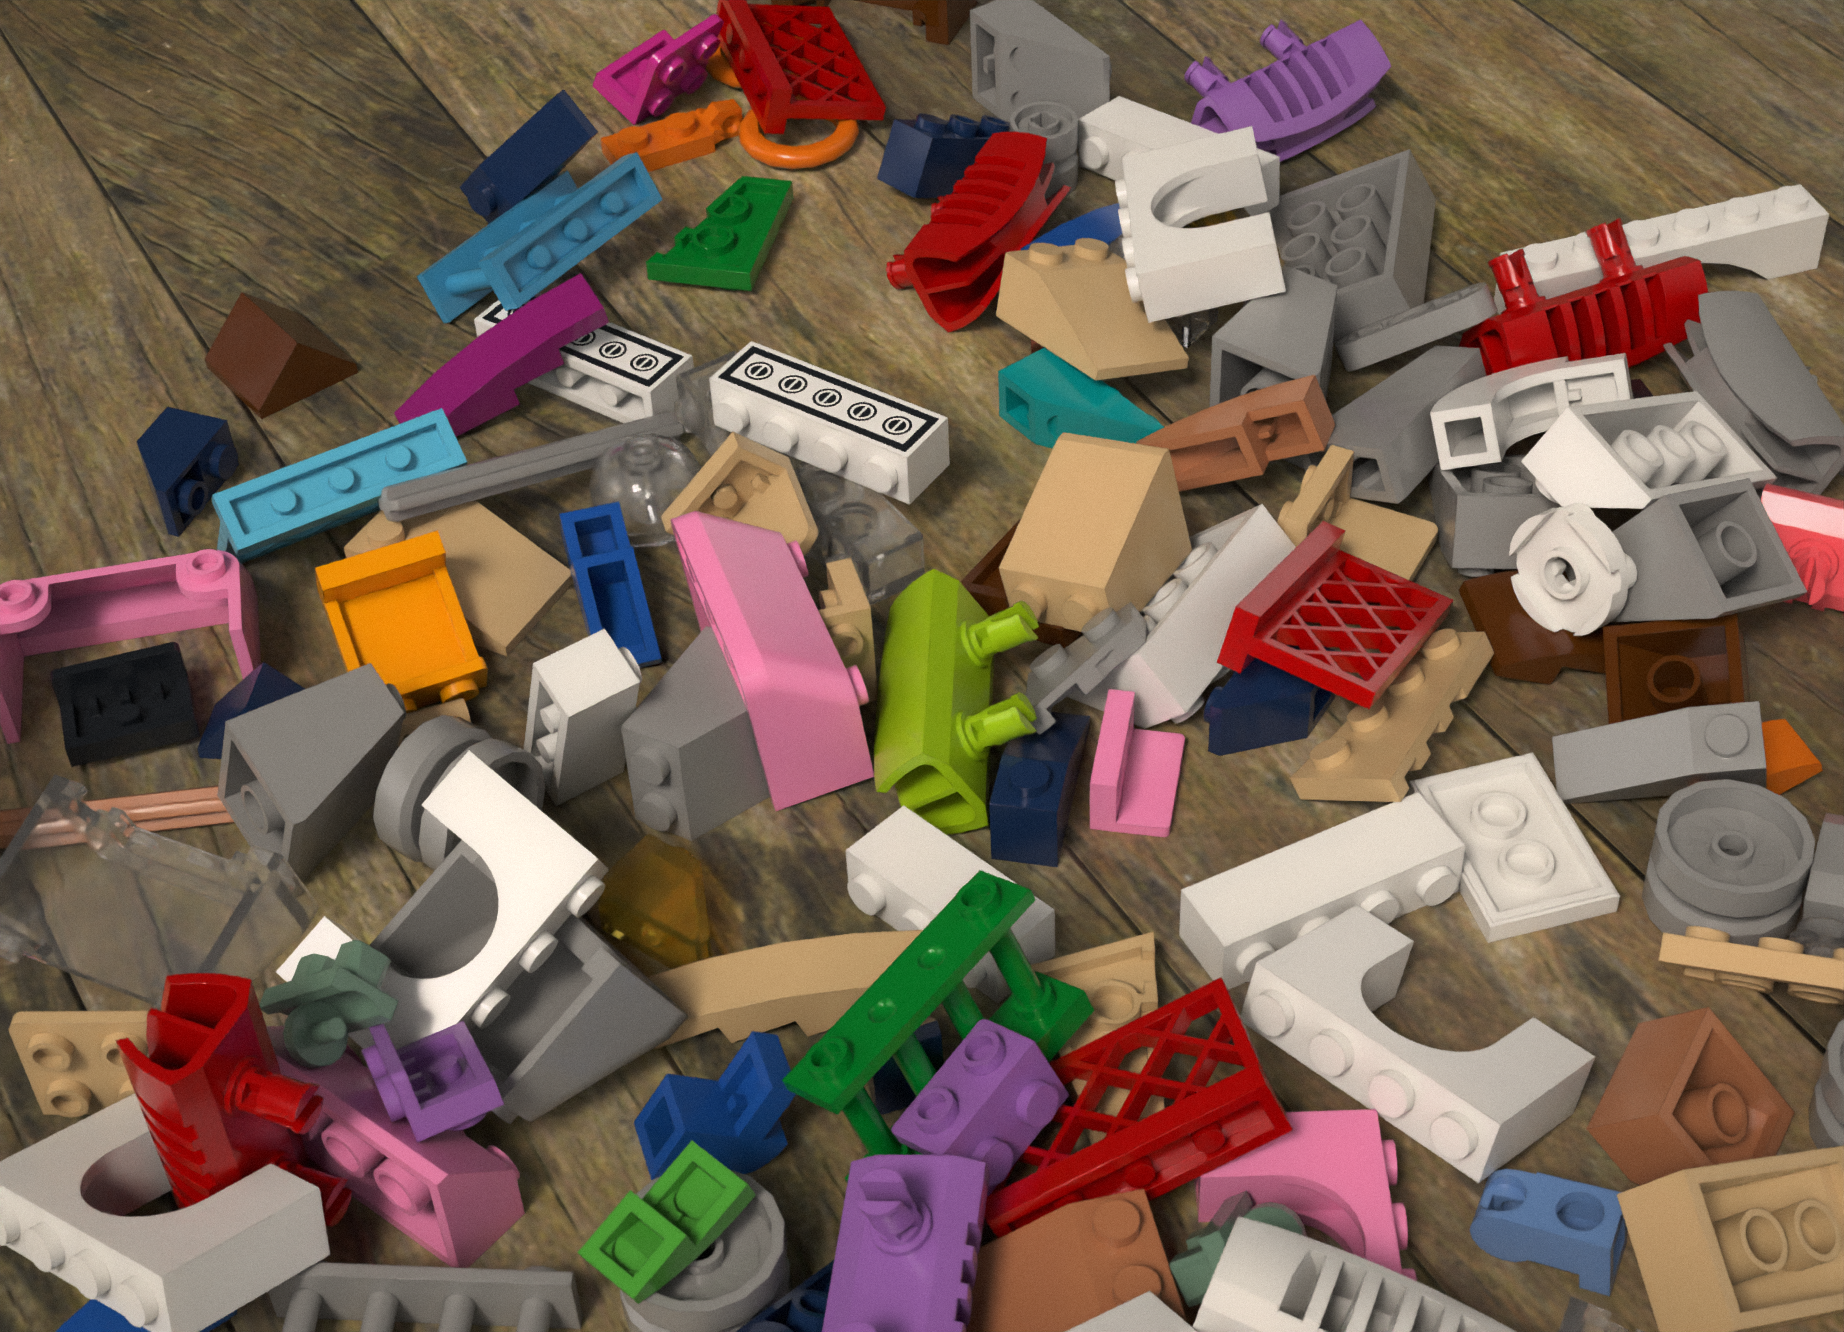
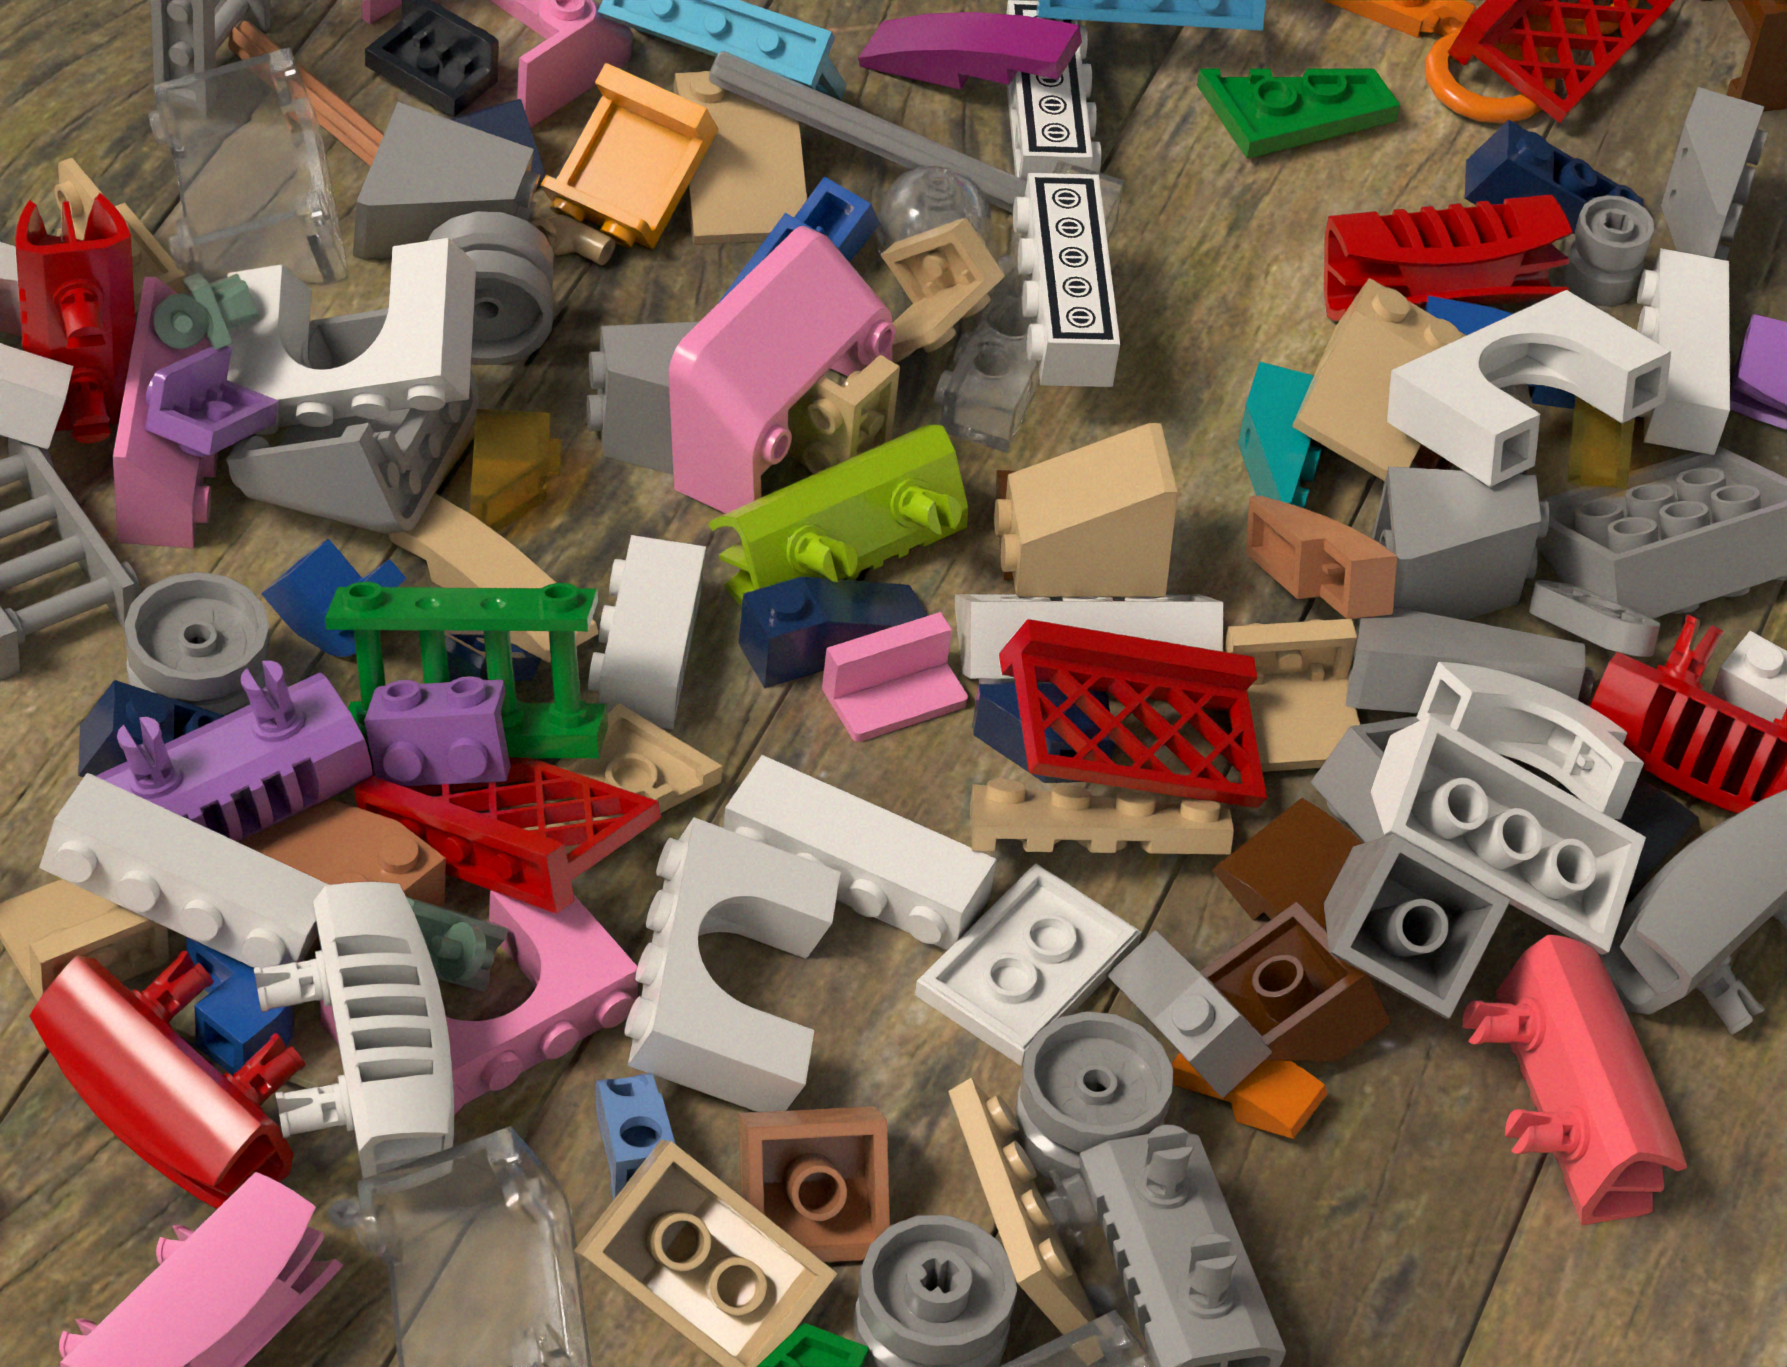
camera: 45 degrees right, 5 degrees up
(578, 714) = (600, 286): white brick -> none
(680, 1216) = (173, 600): bright green slope -> none
(1086, 662) = (949, 579): light grey wing -> none
(1596, 557) = (1321, 850): white plate -> none

